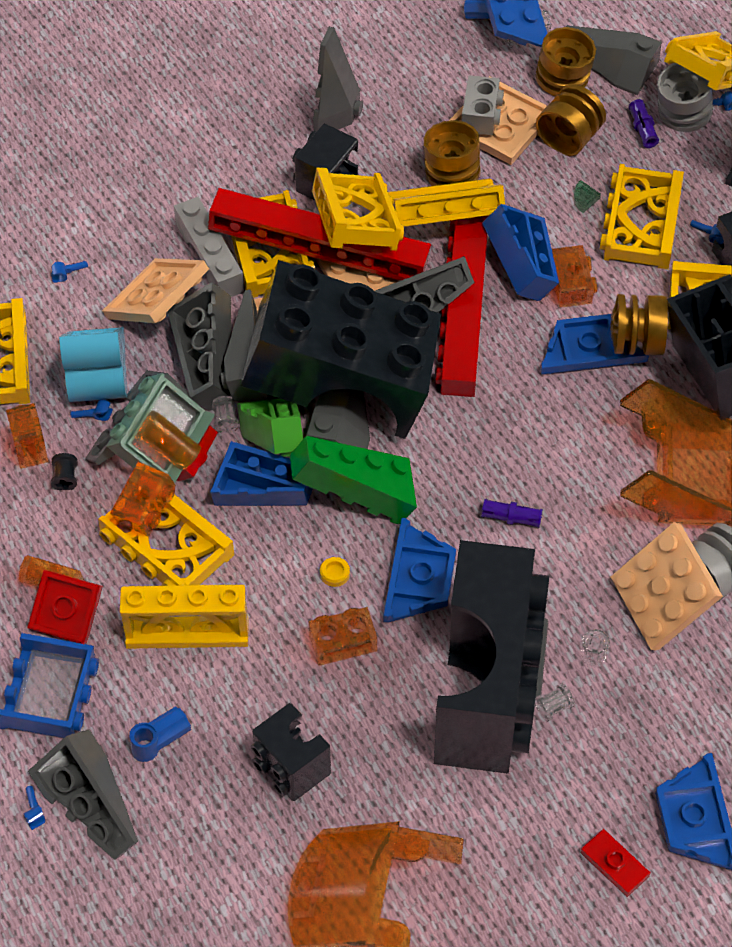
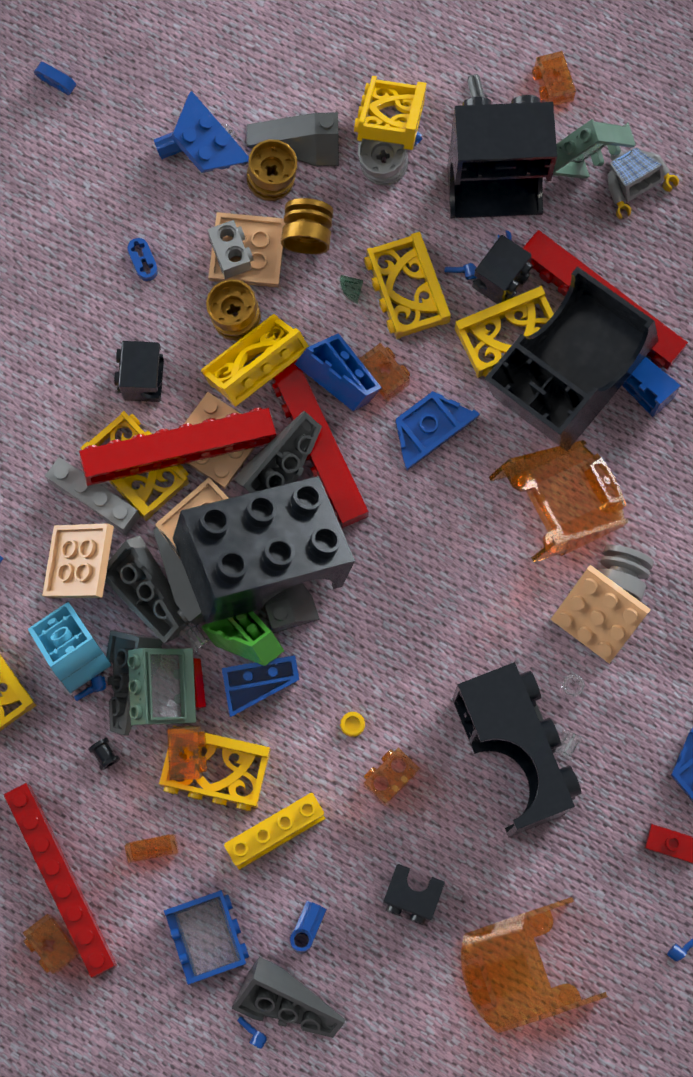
camera: 30 degrees left, 20 degrees up
(27, 435) = (60, 743): clear orange brick -> none
(65, 607) = (178, 867): red tile -> none
(169, 440) = (177, 695): clear orange brick -> none
(336, 87) = (111, 298): dark grey wedge -> none
(356, 475) = (332, 645): green wedge -> none
(366, 191) = (208, 394): yellow fence -> none
(387, 86) = (147, 257): none -> blue beam
(419, 574) = (415, 693): blue wing -> none
(512, 513) = (452, 605): dark purple pin -> none
(640, 324) = (470, 398): pearl gold wheel -> none
(647, 133) = (351, 184): dark purple pin -> none

